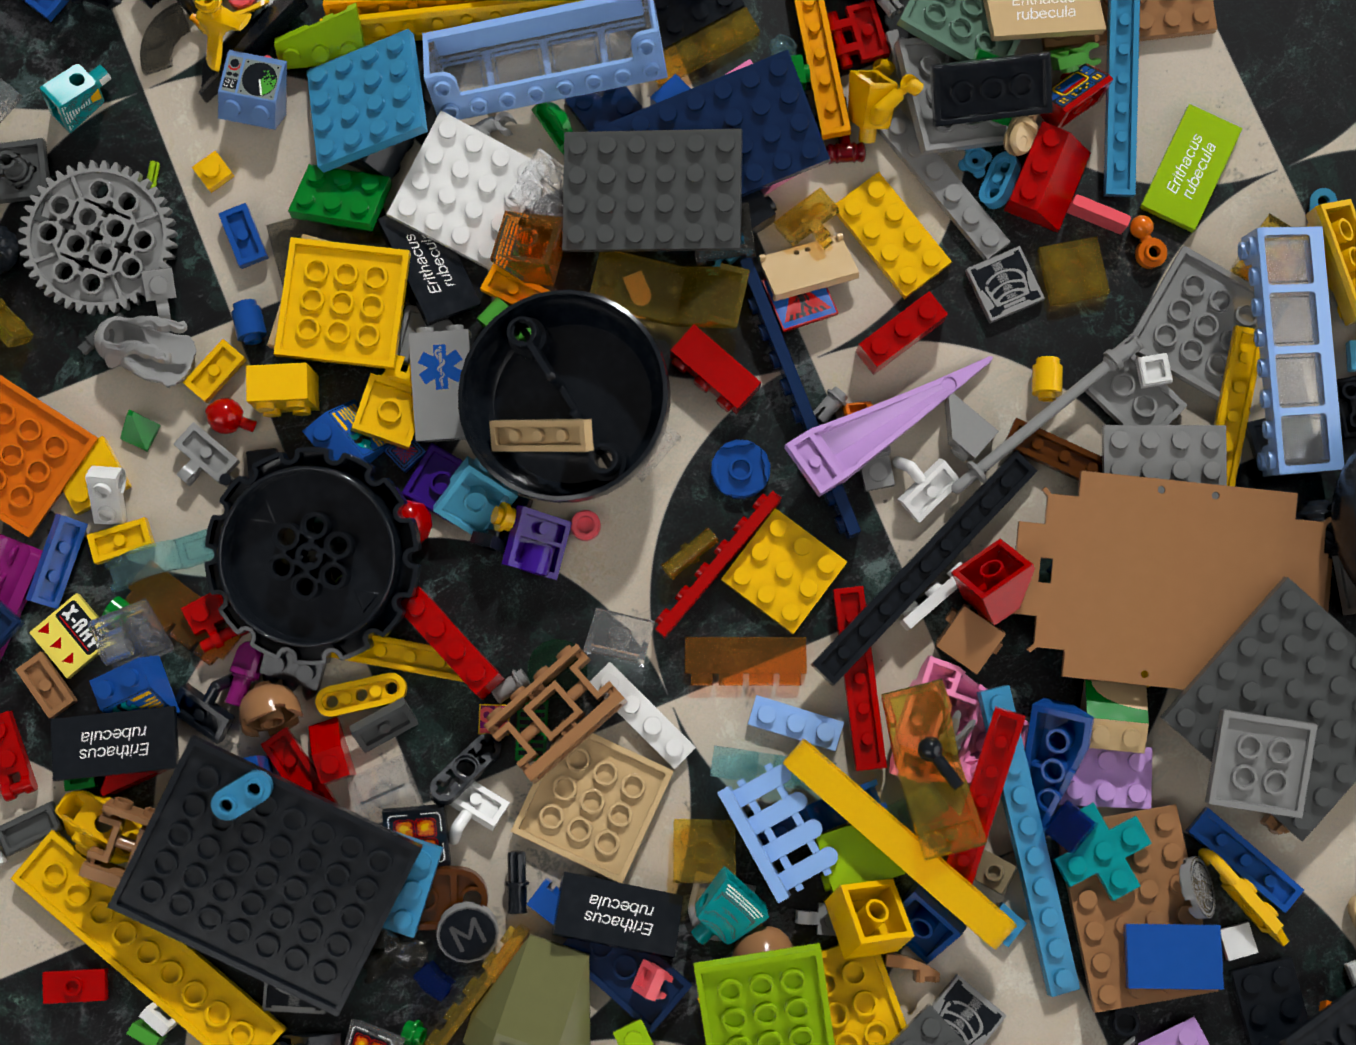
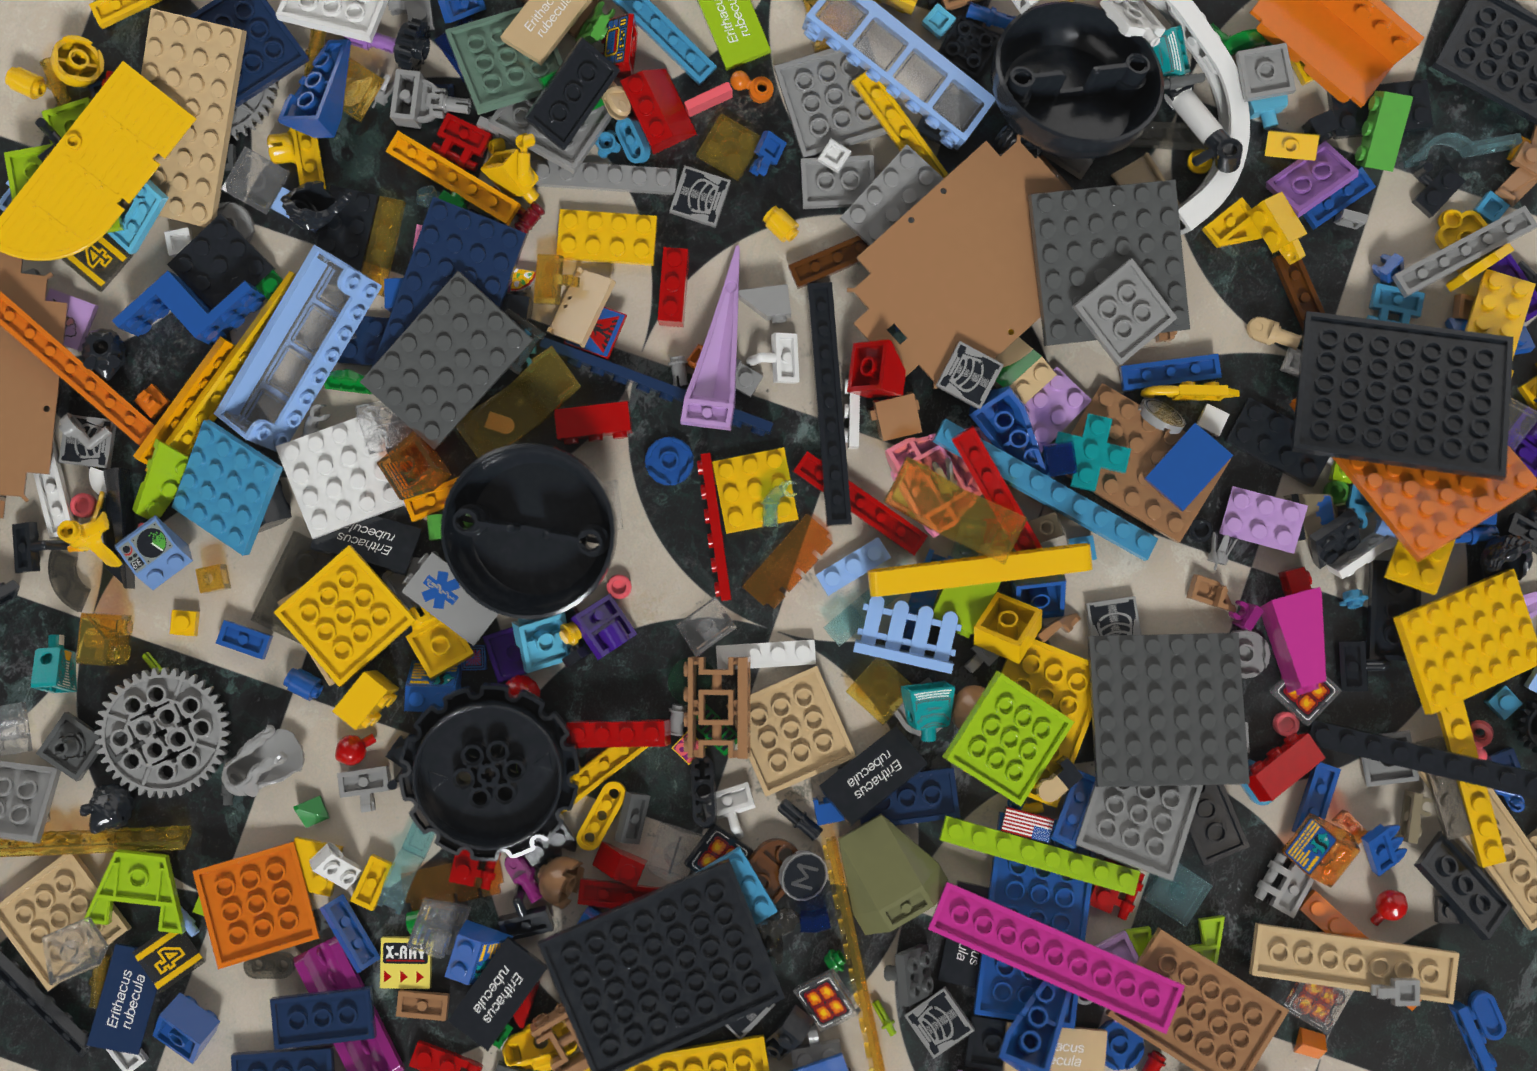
camera: 45 degrees left, 5 degrees up
(137, 114) = (104, 639): none -> clear yellow slope
(159, 287) = (231, 720): light grey plate -> none
(215, 371) = (316, 732): yellow plate -> none
(241, 796) = (601, 944): dark azure plate -> none
(280, 167) = (220, 578): none -> clear yellow plate
(340, 197) = (275, 558): green plate -> none
(542, 435) = (541, 566): tan plate -> none
(649, 981) = (929, 791): coral tile -> none
(690, 553) = (693, 538): clear yellow pin -> none
(785, 194) = (522, 280): none -> tile
(788, 593) = (771, 502): none -> clear light blue piece
(931, 750) = (942, 501): black bar -> none
(1069, 671) = (969, 375): none -> tile
(1103, 308) = (769, 152): none -> blue plate
(1112, 361) = (806, 175): light grey bar -> none

